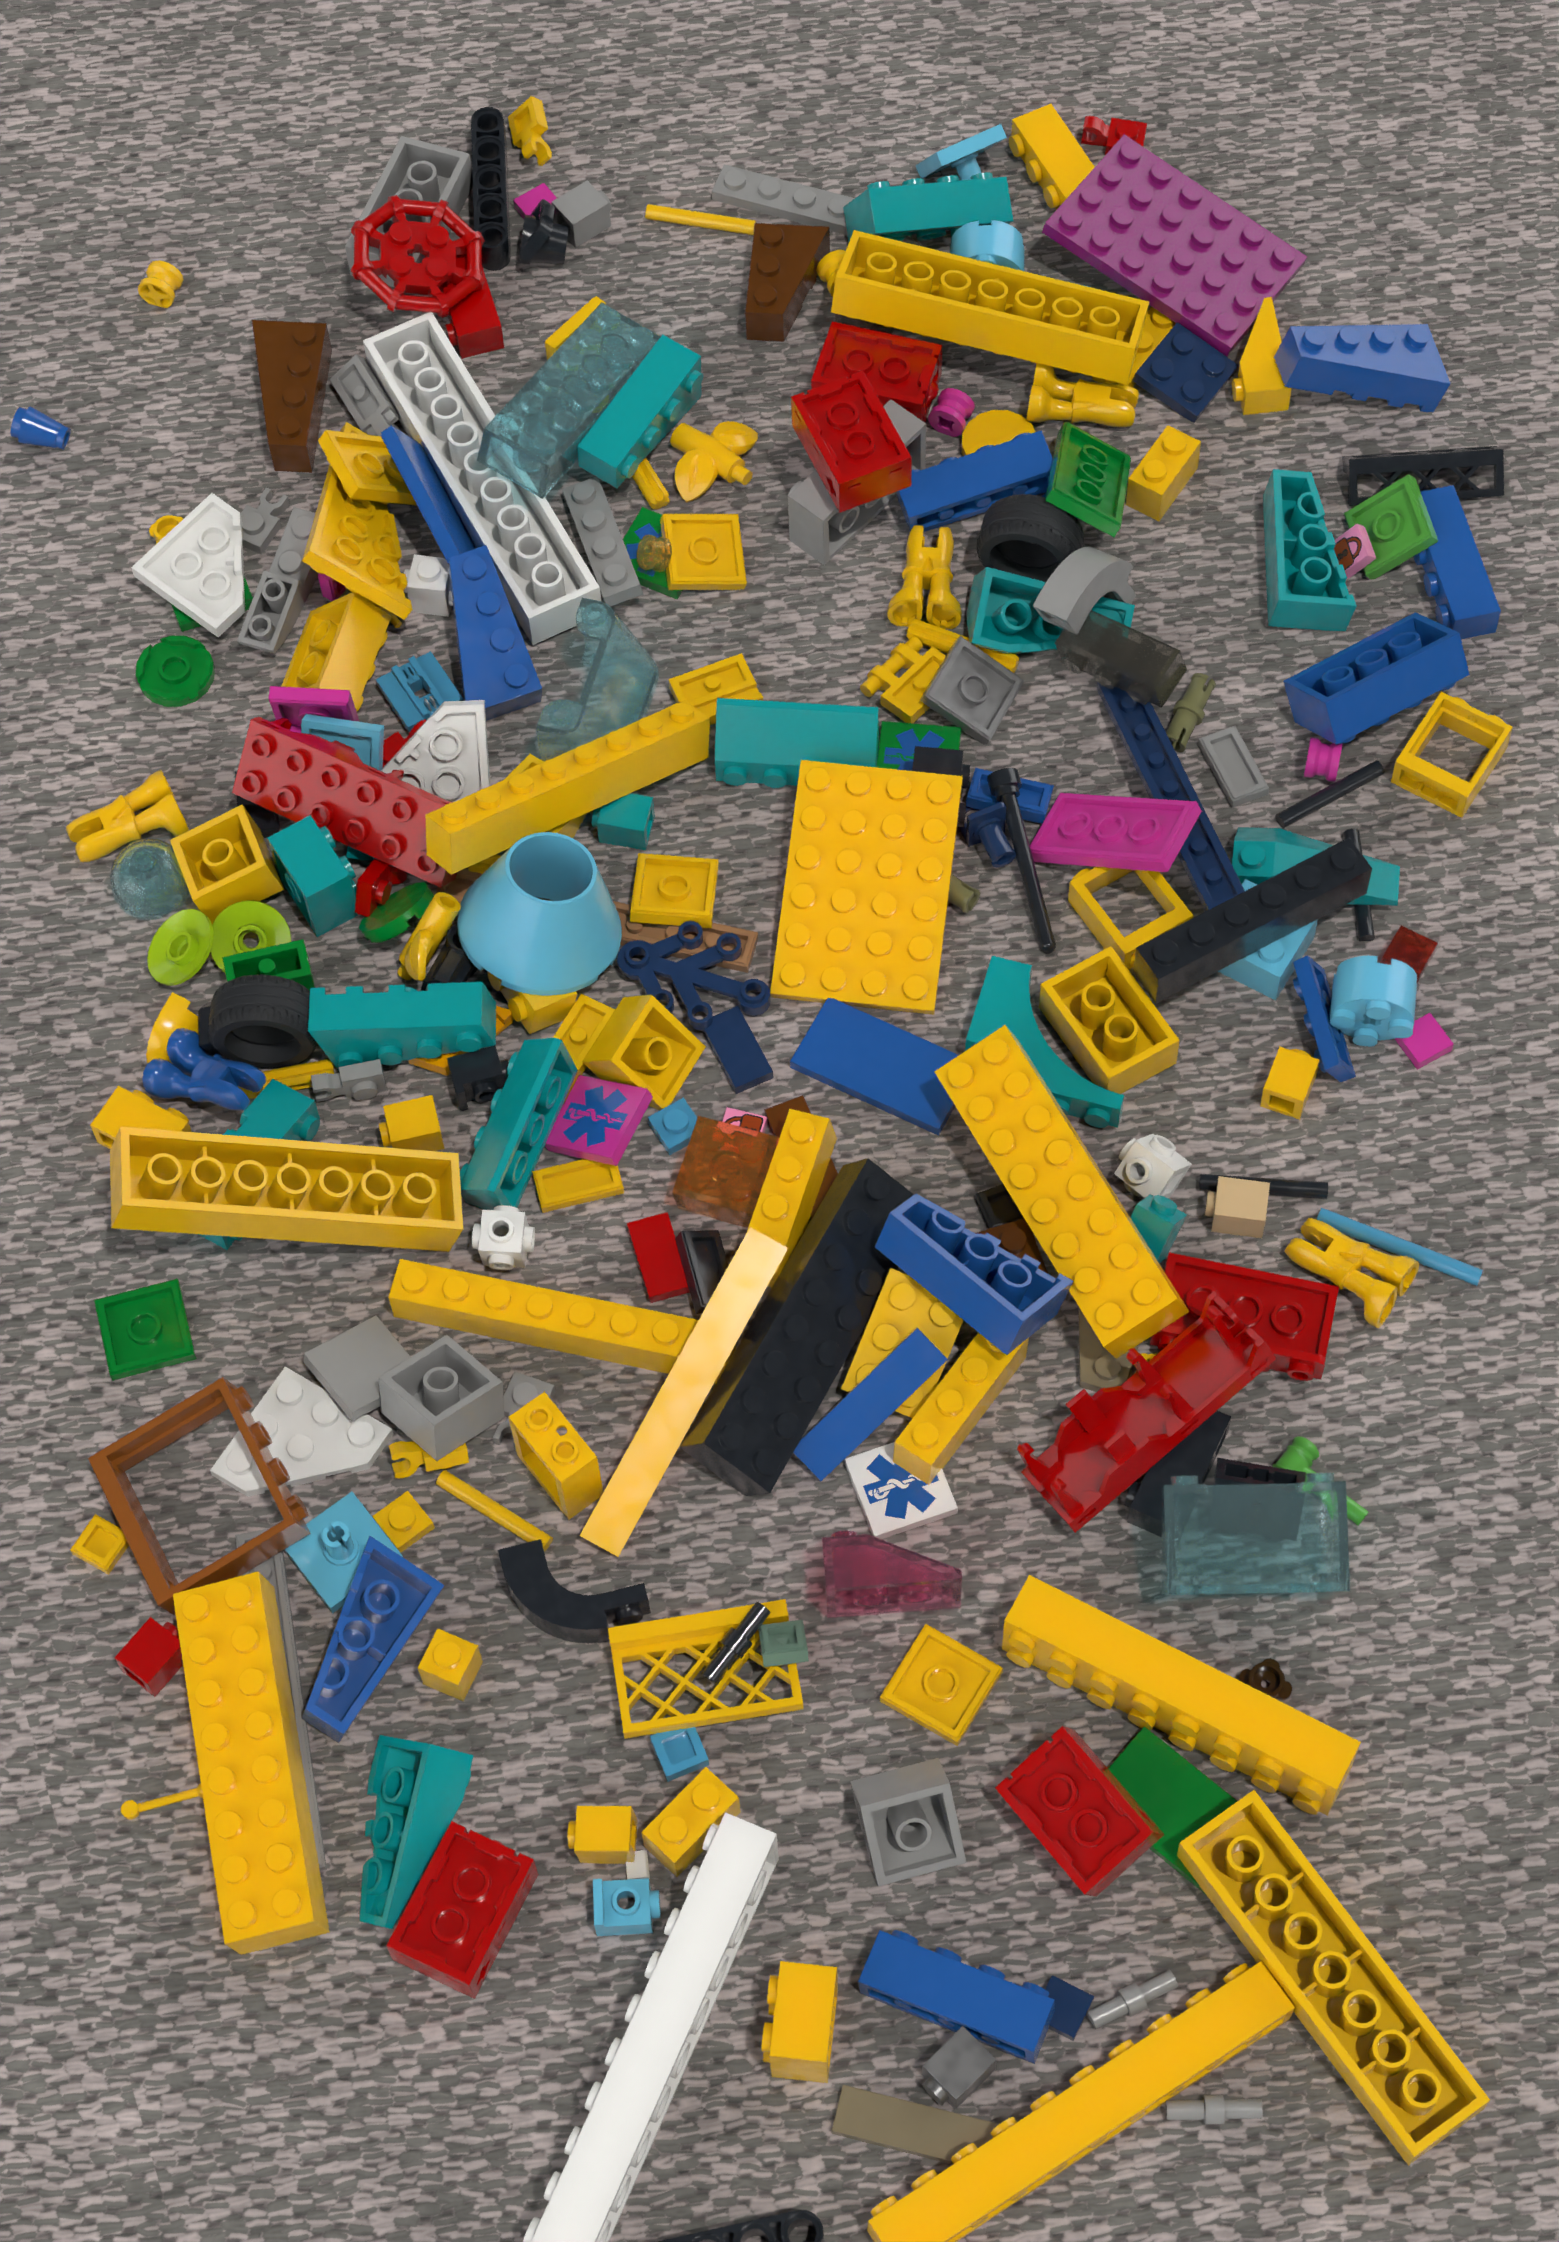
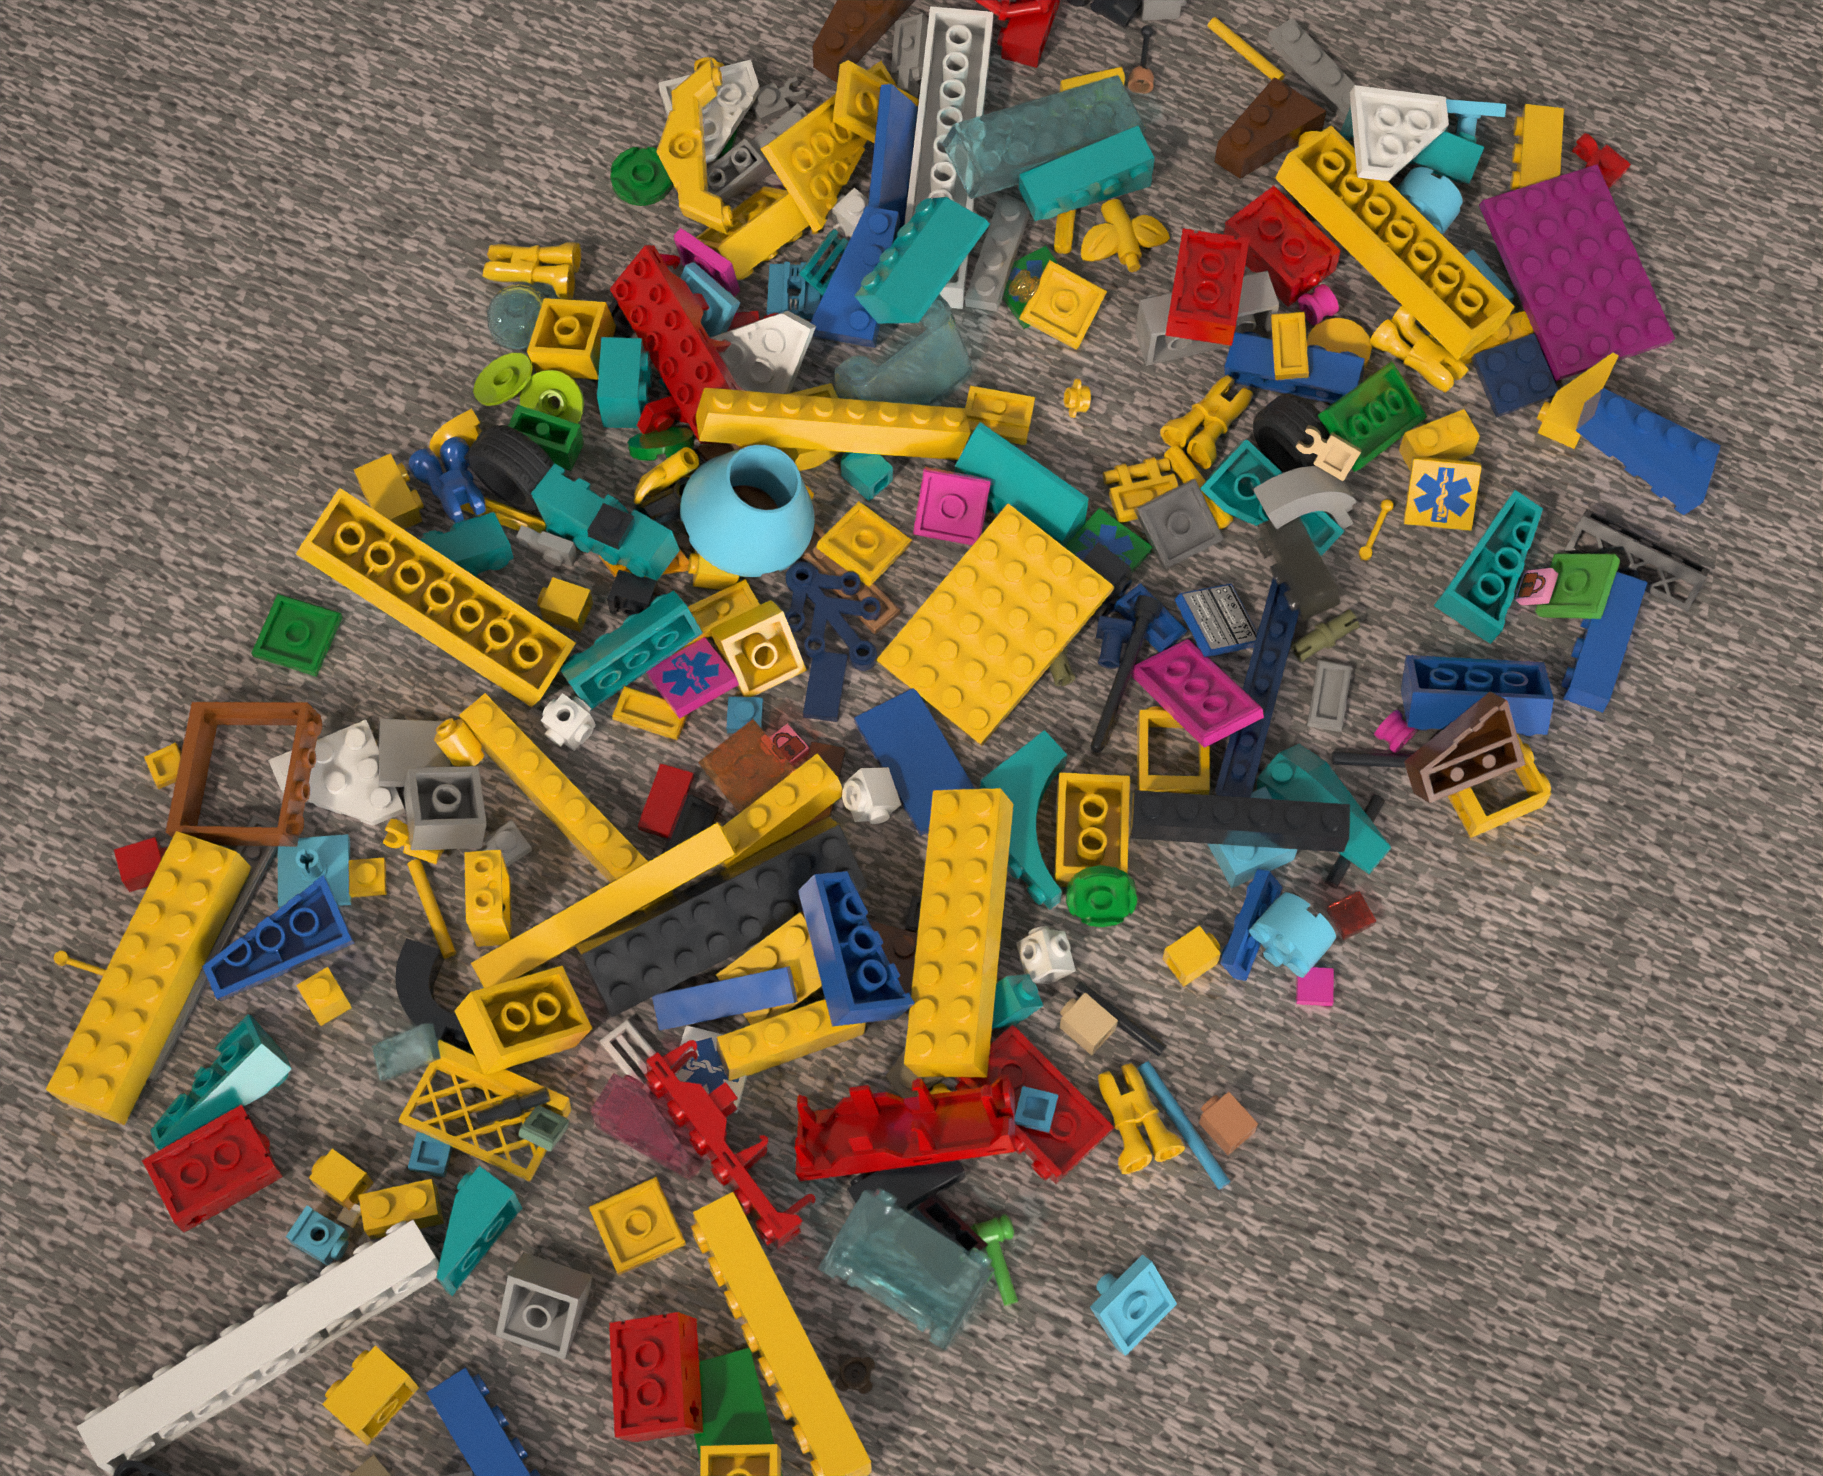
camera: 30 degrees right, 5 degrees up
(214, 618) = (683, 149): none -> yellow helmet
(405, 1326) = (458, 743): none -> yellow brick
(418, 1012) = (611, 526): none -> black plate
(449, 641) = (840, 246): none -> teal tile
(546, 578) = (920, 261): none -> teal slope
(580, 1663) = (406, 1052): none -> clear light blue tile
(619, 294) = (1141, 72): none -> nougat hinge
(683, 1550) = (523, 1019): none -> yellow brick
(739, 802) = (951, 506): none -> dark pink tile
(779, 1763) = (477, 1220): none -> teal slope
(783, 631) = (1077, 398): none -> yellow plate
(813, 1505) = (616, 1035): none -> white tile
(866, 1122) = (870, 795): none -> white brick
(915, 199) = (1393, 128): none -> white plate
(955, 1536) = (706, 1121): none -> red piece
(961, 459) = (1289, 346): none -> yellow tile
(1078, 756) = (1217, 620): none -> tile
(1088, 528) = (1333, 454): none -> tan plate
(1165, 1077) = (1101, 896): none -> green tile
(1167, 615) = (1365, 552): none -> yellow hinge
(1202, 515) = (1442, 493): none -> yellow tile
(1258, 1311) = (1036, 1109): none -> dark azure plate
(1415, 727) = (1467, 751): none -> reddish brown wedge
(1440, 1215) = (1227, 1122): none -> nougat brick
(1484, 1440) = (1132, 1304): none -> medium azure tile

